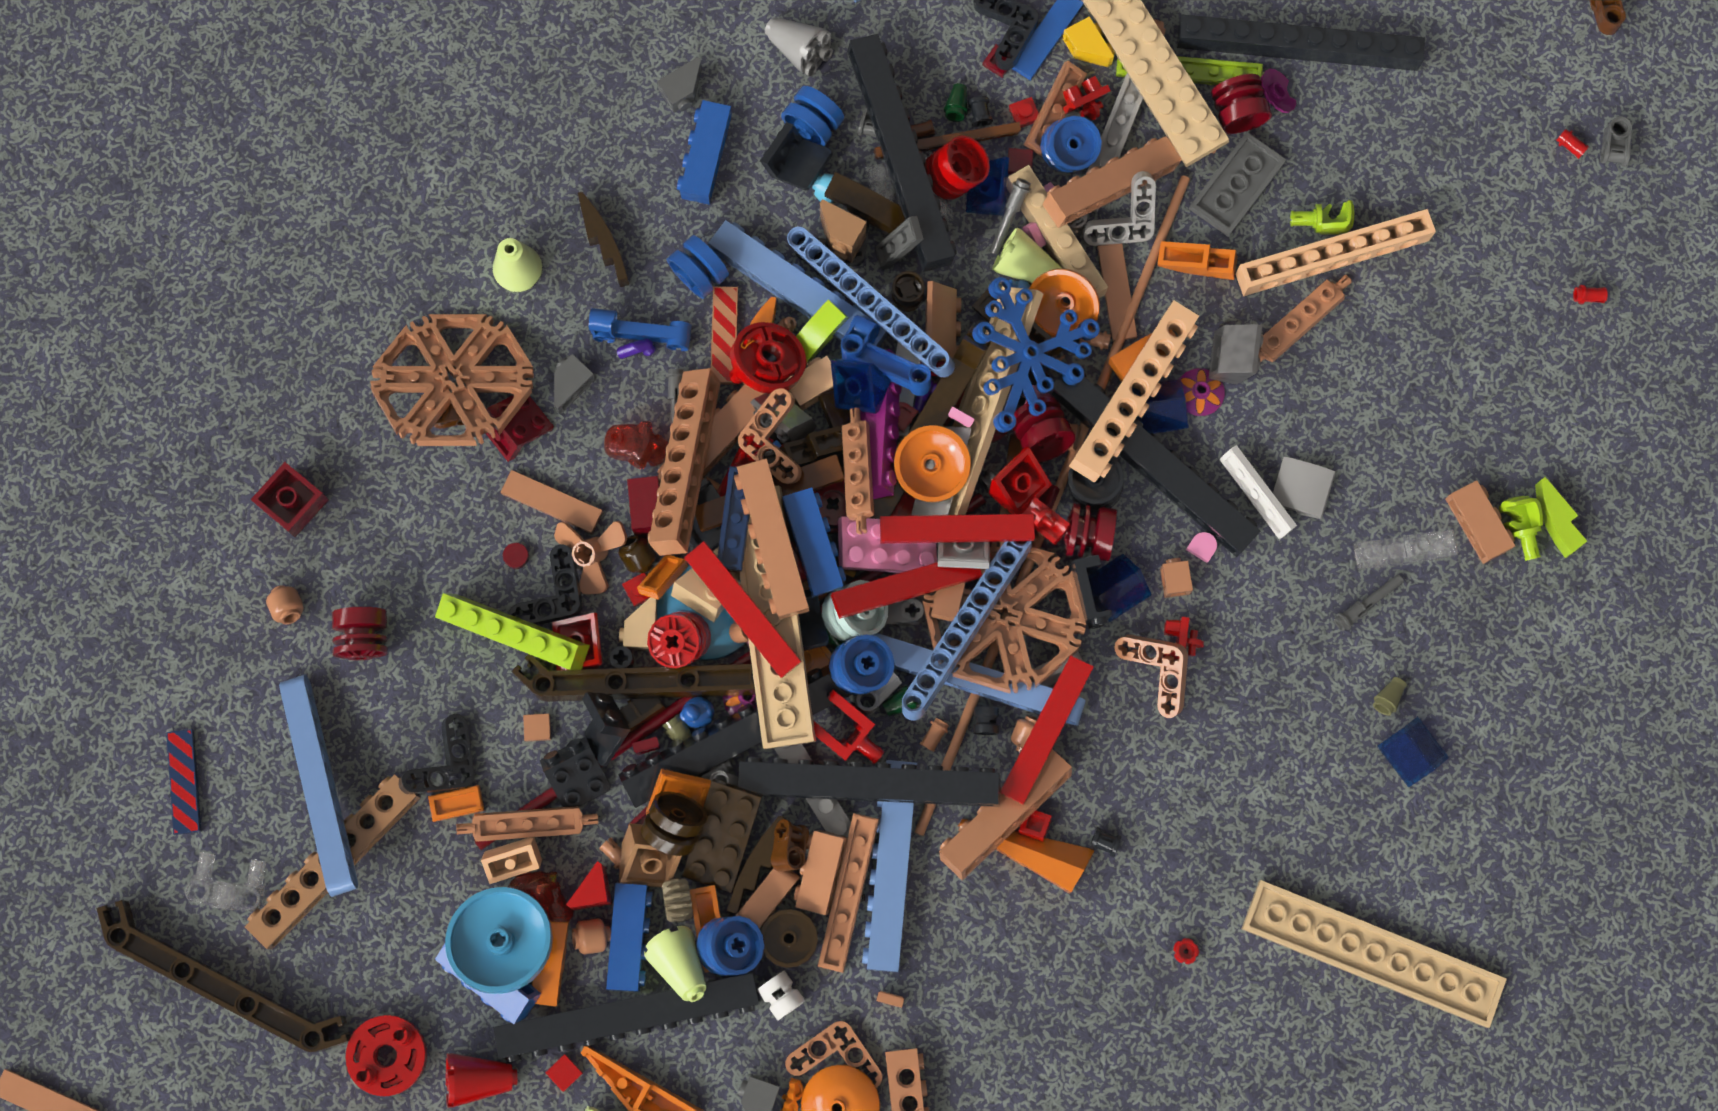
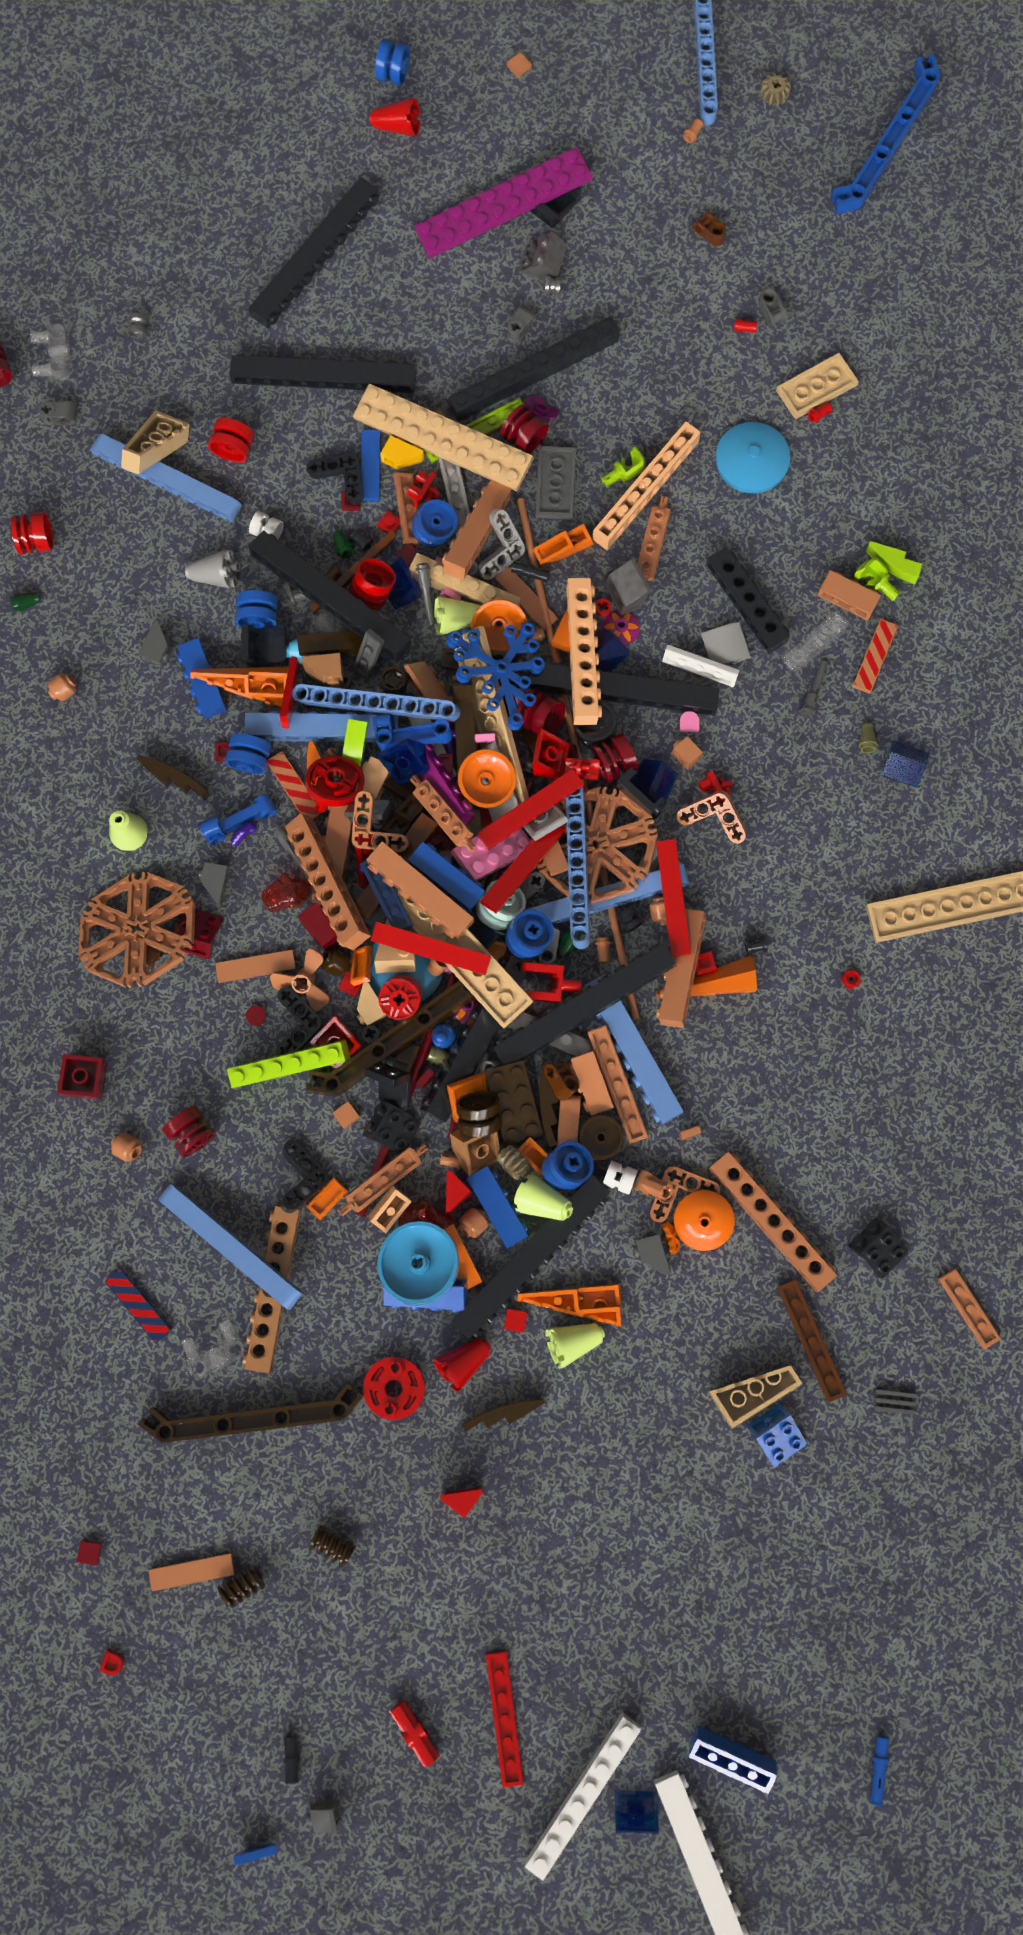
camera: 30 degrees left, 0 degrees up
(553, 65) = (62, 686): none -> nougat head
(674, 242) = (220, 751): none -> dark red tile
(765, 199) = (258, 683): none -> orange wedge
(779, 235) = (288, 699): none -> red tile
(808, 1028) = (652, 1185): none -> nougat piece
(885, 25) = (263, 522): none -> white wheel
(1140, 265) = (530, 571): none -> black pin
(1196, 349) = (601, 602): none -> red bush
(1354, 514) = (727, 559): none -> black brick
(1463, 609) = (875, 656): none -> tile
(1478, 297) = (752, 457): none -> dark azure dish
(1607, 263) = (817, 386): none -> tan plate

